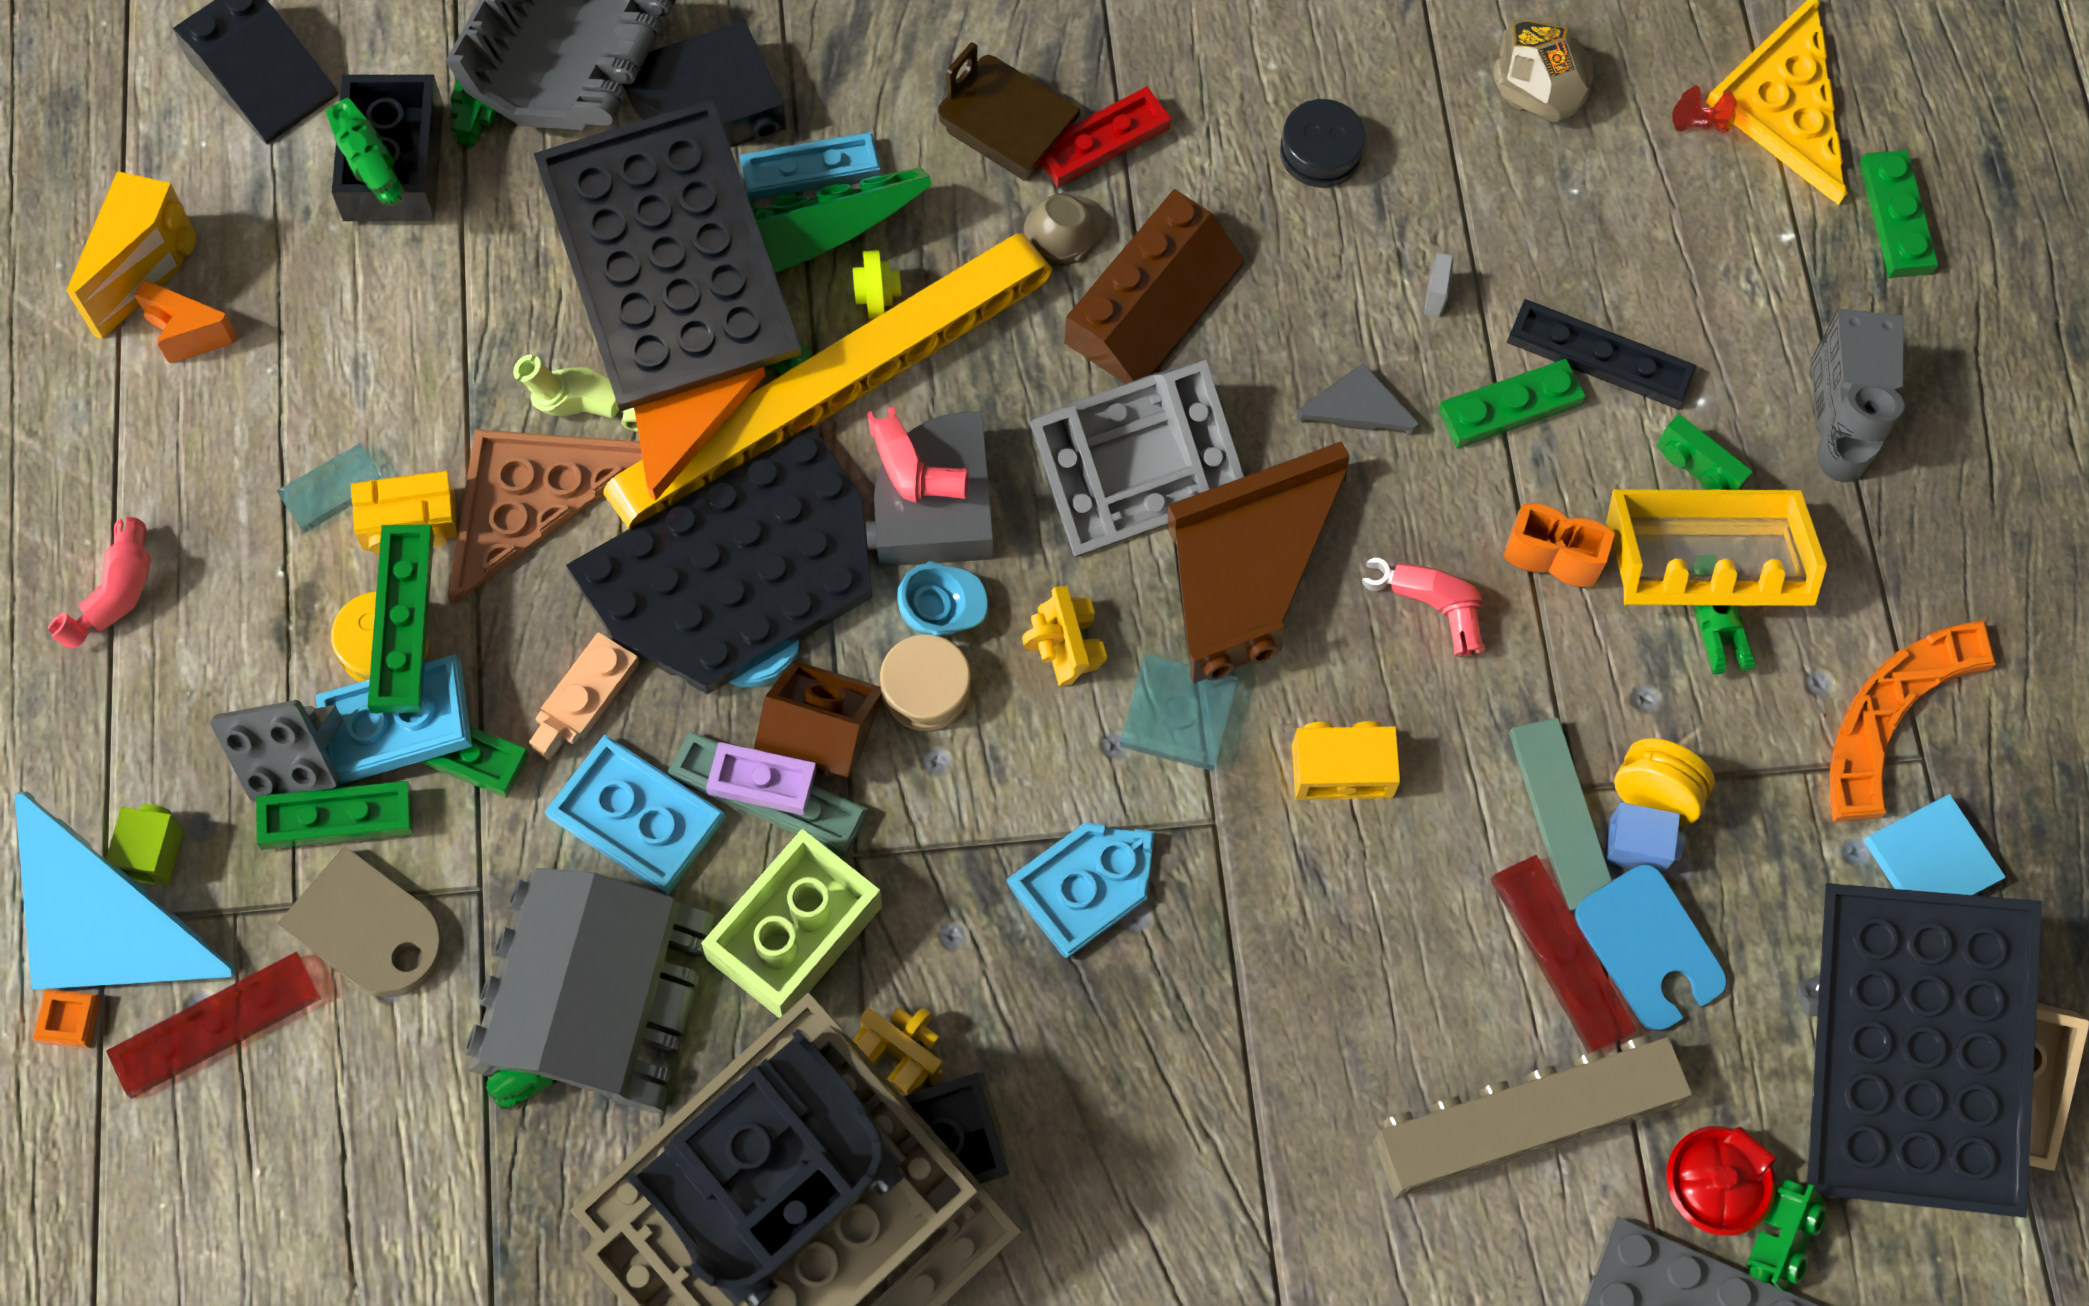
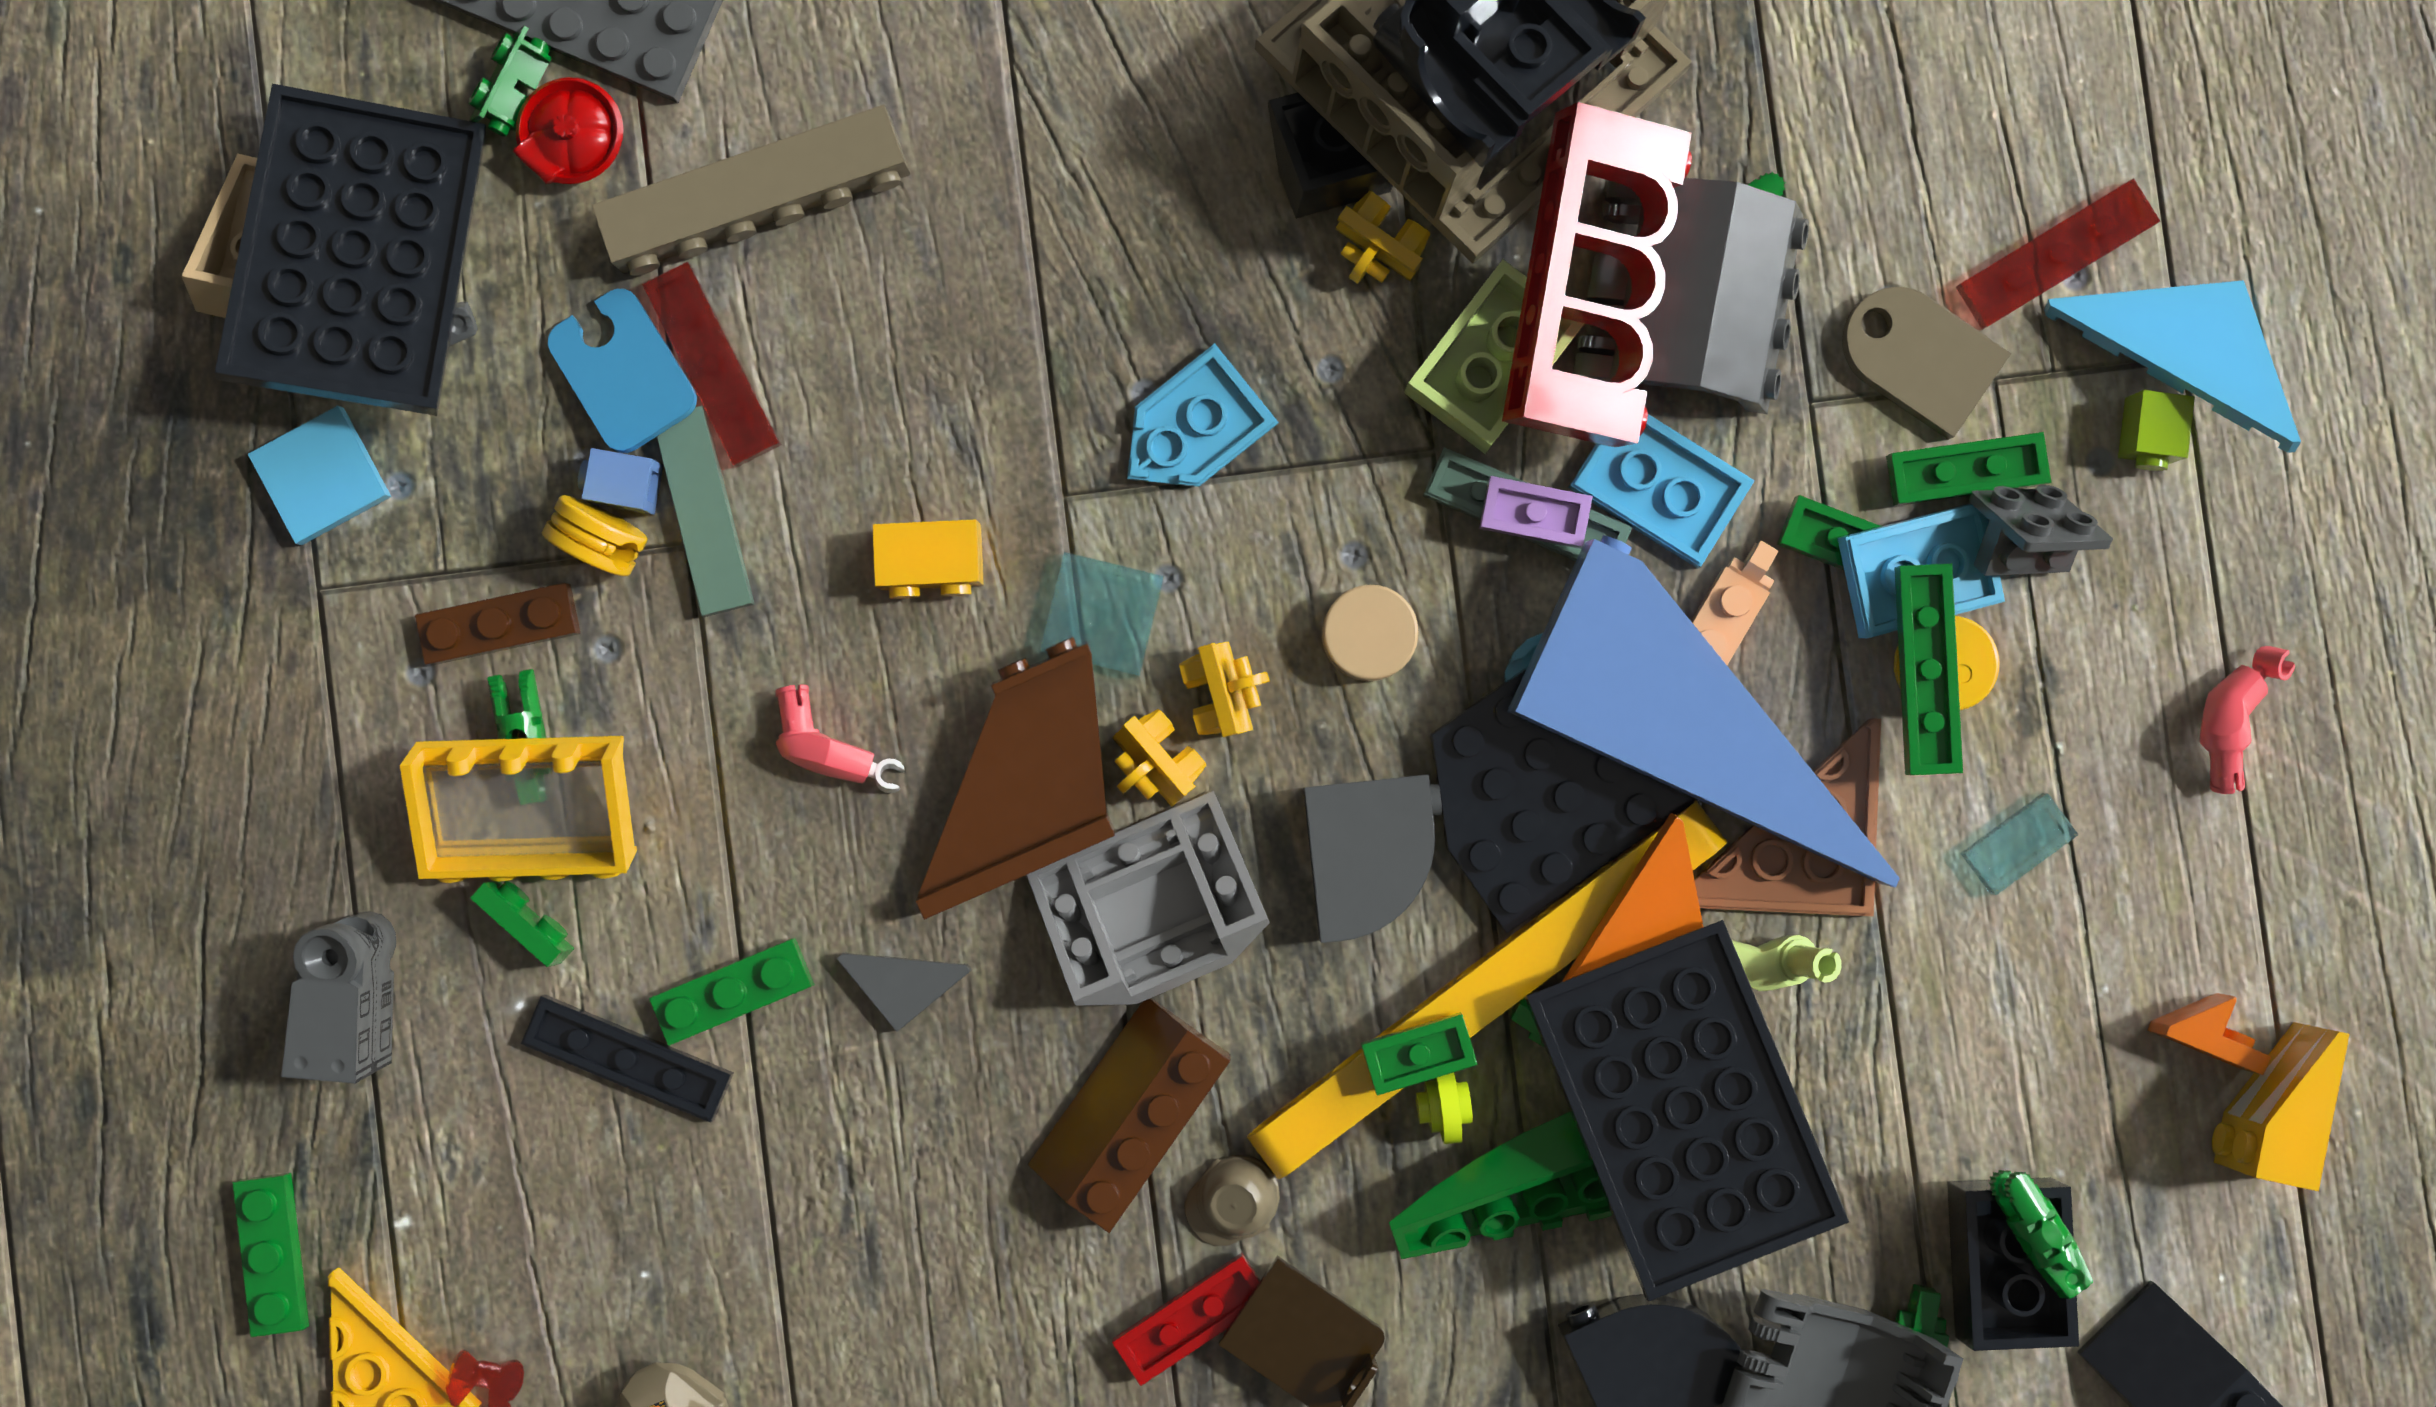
camera: 175 degrees left, 20 degrees up
(67, 1018) = (2203, 255): orange tile -> none
(405, 501) = (1937, 811): yellow brick -> none
(667, 604) = (1650, 692): none -> medium blue slope
(688, 852) = (1651, 163): none -> fence
(810, 166) = (1526, 1271): medium azure tile -> none
(818, 718) = (1479, 589): reddish brown slope -> none
(898, 314) = (1419, 1053): none -> green plate
(905, 467) = (1403, 861): coral arm -> none
(941, 599) = (1355, 723): medium azure hat -> none
(1140, 596) = (1149, 764): none -> yellow hips
(1322, 143) = (935, 1319): black head -> none
(1438, 285) = (807, 1133): light grey tile -> none
(1565, 547) = (681, 801): orange brick -> none
(1750, 719) = (497, 624): none -> reddish brown plate
(1881, 704) = (354, 647): orange tile -> none

